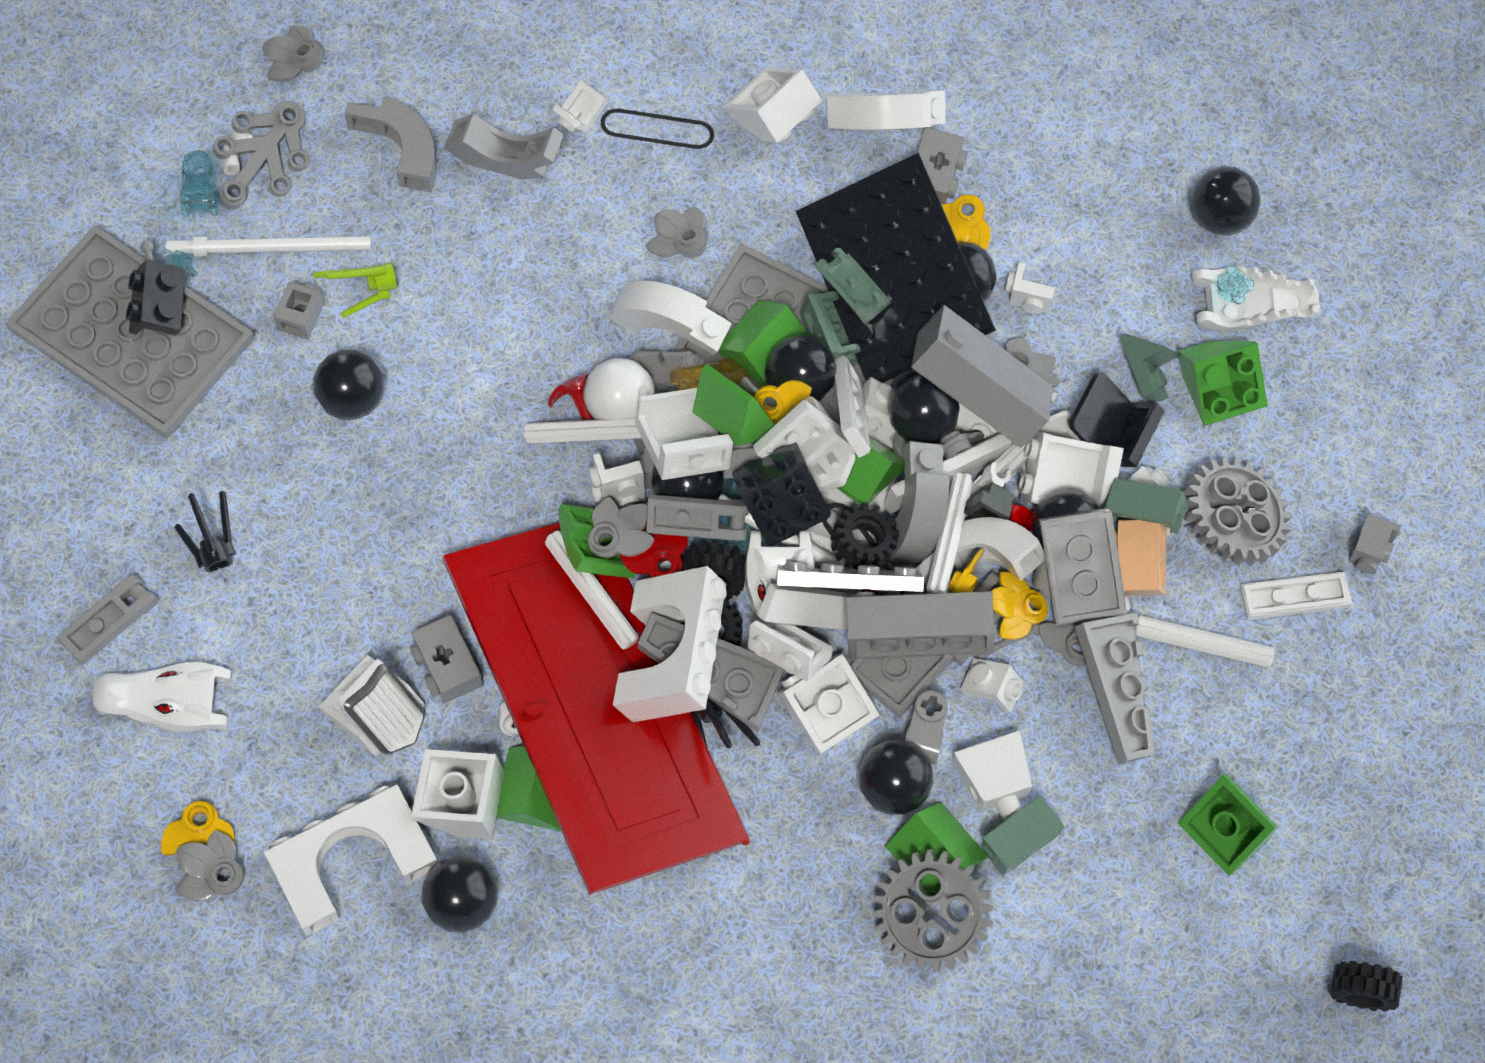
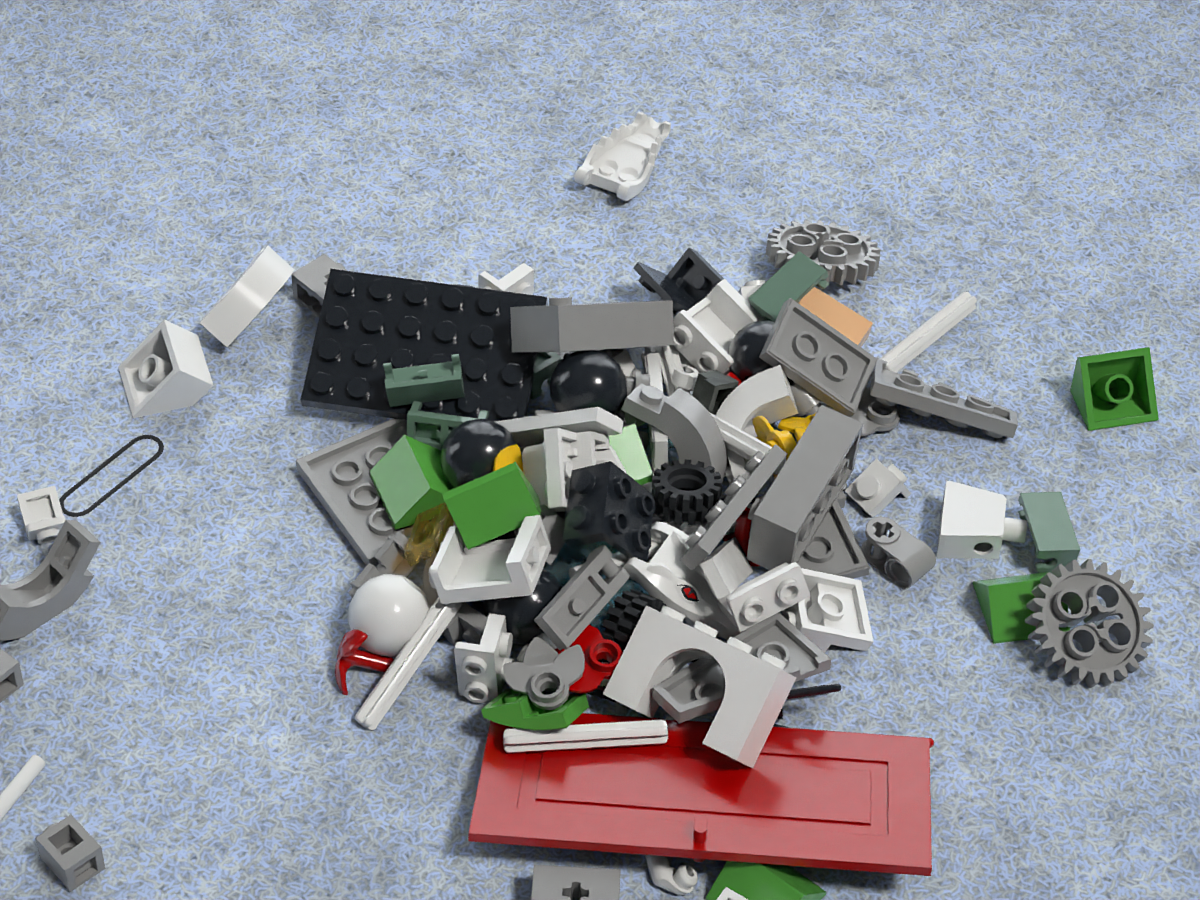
camera: 60 degrees left, 20 degrees down
(348, 384) = (197, 843): black piece -> none
(377, 277) = (87, 770): lime plant -> none
(671, 308) = (323, 535): white arch -> none
(674, 232) = (242, 506): light grey plate -> none
(895, 777) = (938, 590): black piece -> none
(1145, 361) = (631, 243): sand green slope -> none
(1223, 378) = (687, 206): bright green slope -> none
(1225, 200) = (525, 125): black piece -> none
(1229, 290) = (609, 156): clear light blue plate -> none
(1295, 595) = (920, 260): white tile -> none
(1374, 543) = (907, 189): light grey brick -> none

